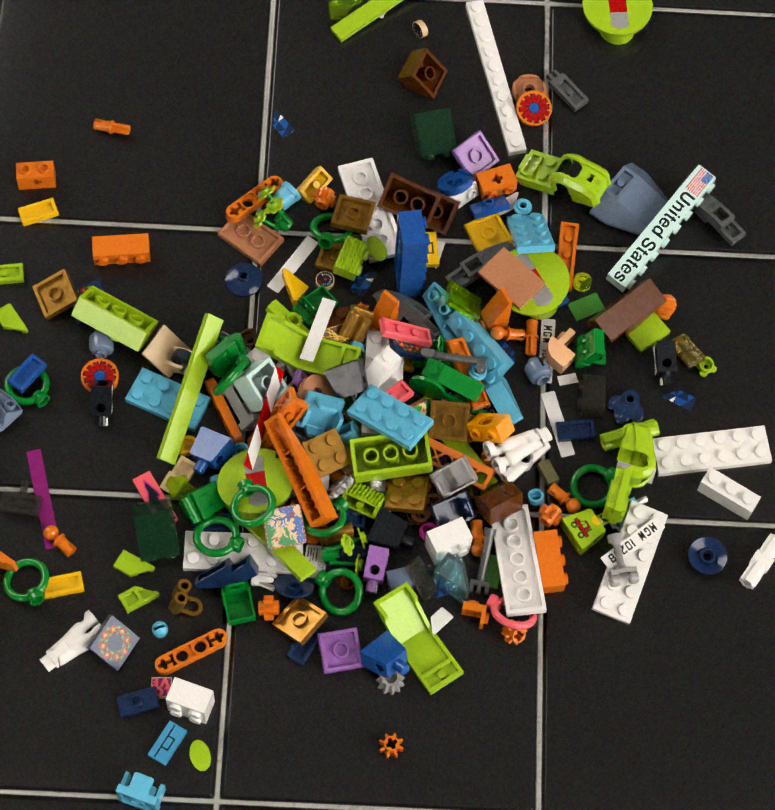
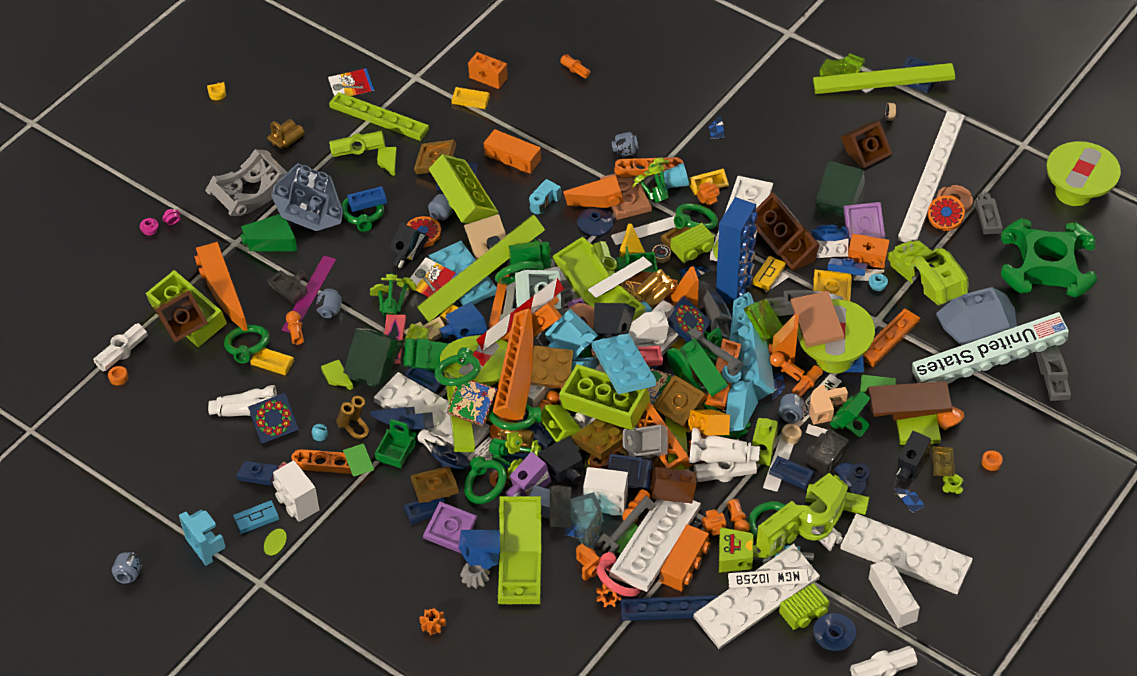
camera: 40 degrees right, 15 degrees down
(73, 499) = (328, 303): none -> sand blue head
(132, 469) = (390, 306): none -> plant
(136, 597) = (320, 400): lime tile -> none
(145, 421) = (431, 277): none -> sticker
(182, 278) = (543, 196): none -> medium azure leg
(217, 187) = (625, 144): none -> sand blue head
(217, 636) = (358, 460): none -> bright green sticker
(233, 252) = (600, 193): none -> orange slope
(235, 542) = (426, 398): green piece -> none
(268, 607) = (417, 461): orange gear -> none
(340, 486) = (544, 398): light grey gear -> none
(353, 214) = (713, 209): pearl gold plate -> none
(405, 332) = (690, 312): coral tile -> none
(440, 619) = (553, 551): white sticker -> none
(530, 233) = (864, 297): medium azure plate -> none
(535, 497) = (712, 502): medium azure hinge -> none
(539, 412) = (765, 434): none -> lime torso
(547, 473) = (739, 489): olive piece -> none
(550, 394) = (791, 433): none -> tan tile
(564, 613) = (663, 607): none -> dark blue tile
(582, 282) = (888, 363): clear neon green tile -> none
(614, 580) = (752, 564): light grey bar -> none
(649, 93) = (1055, 244): none -> green piece
(670, 547) = (804, 607): none -> lime brick
(719, 326) = (992, 460): none -> orange tile

